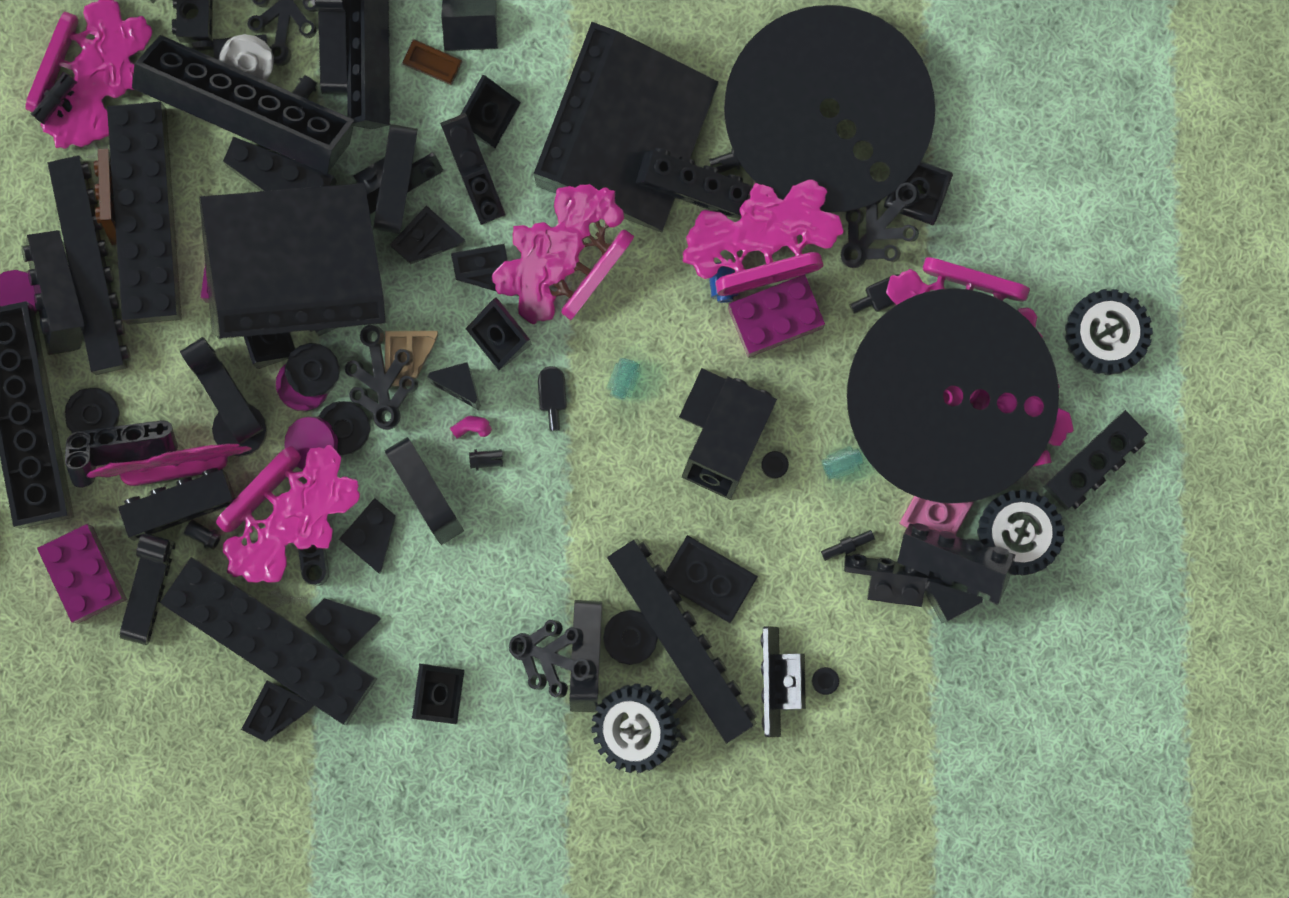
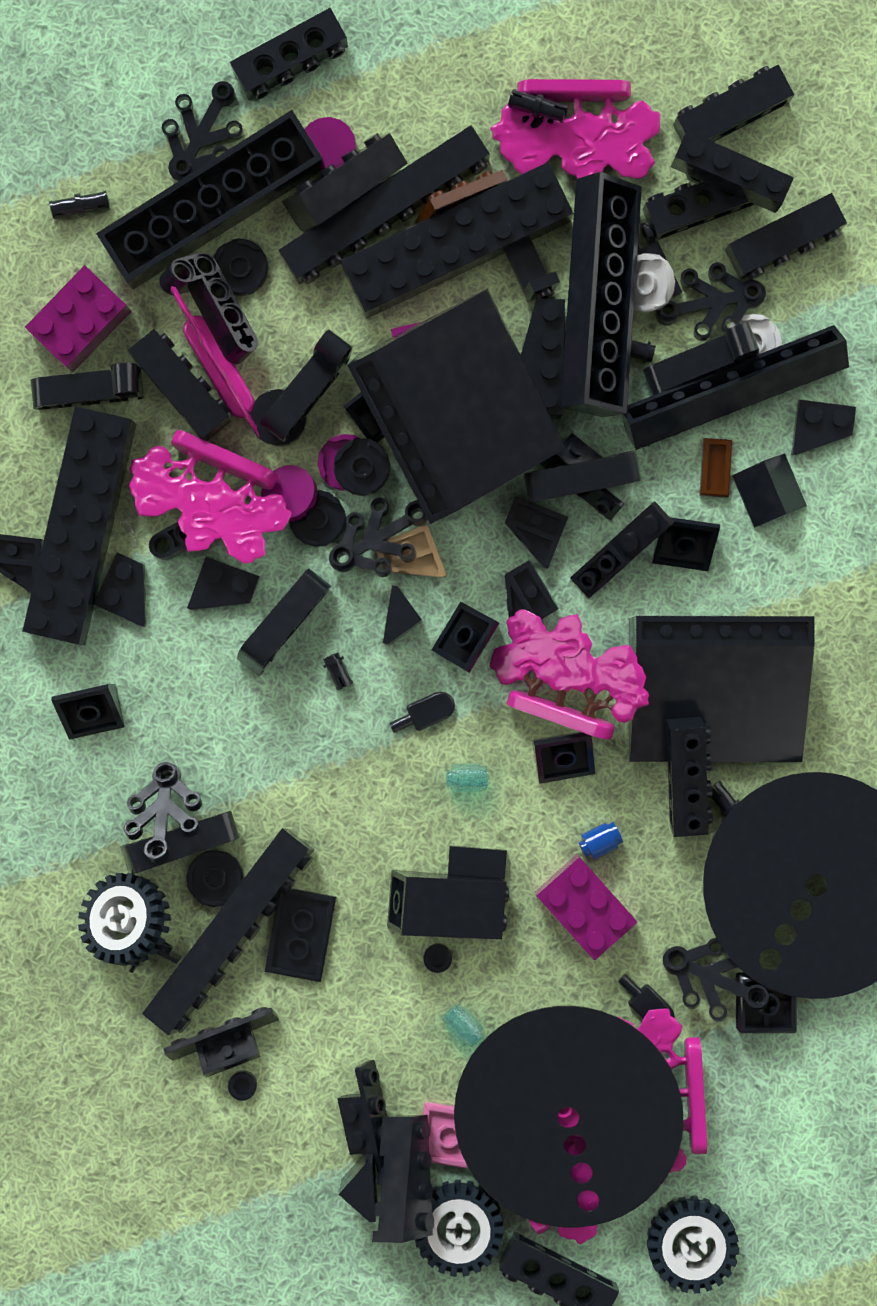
camera: 70 degrees right, 5 degrees up
(197, 159) = (531, 272): none -> black bracket
(205, 536) = (161, 421): black pin -> none
(471, 423) = (368, 645): dark pink arm -> none
(636, 286) = (563, 756): none -> black slope
(764, 227) = (670, 867): dark pink plant -> none
(847, 545) = (384, 1059): black bar -> none

